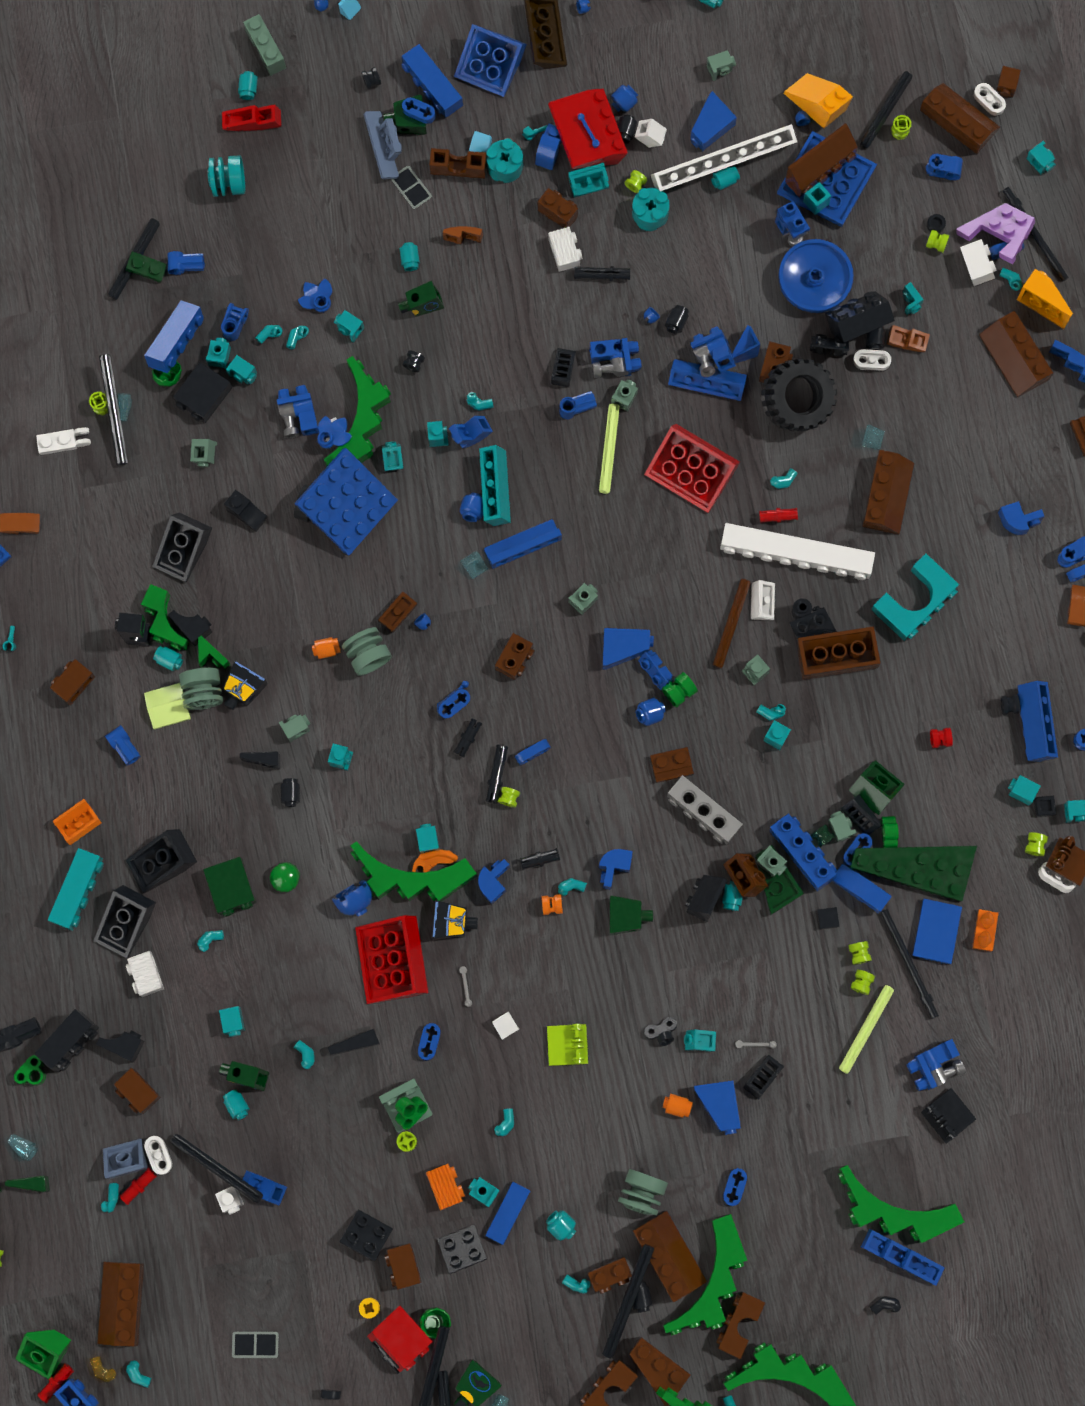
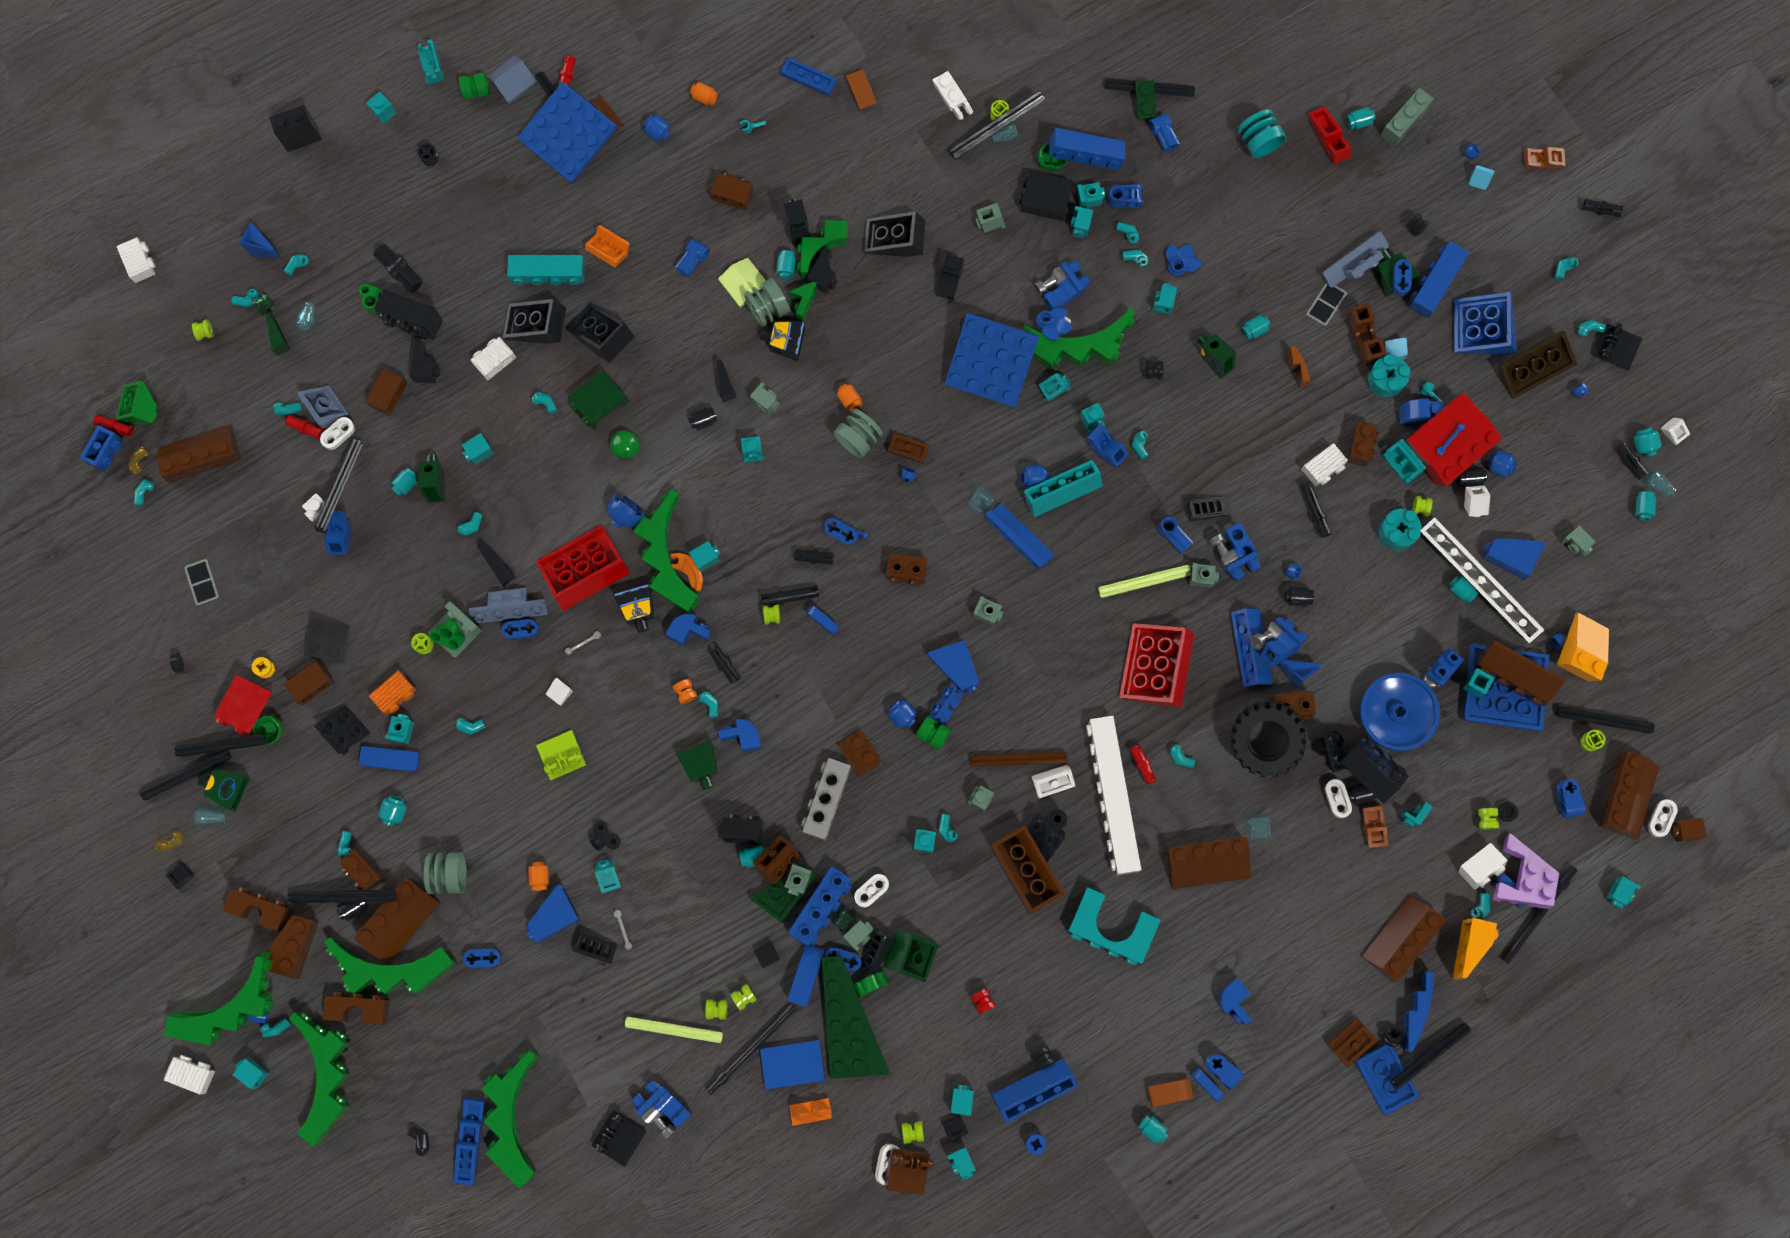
camera: 70 degrees right, 0 degrees up
(401, 1044) = (507, 606): none -> sand blue bracket
(803, 801) = (871, 890): none -> white plate

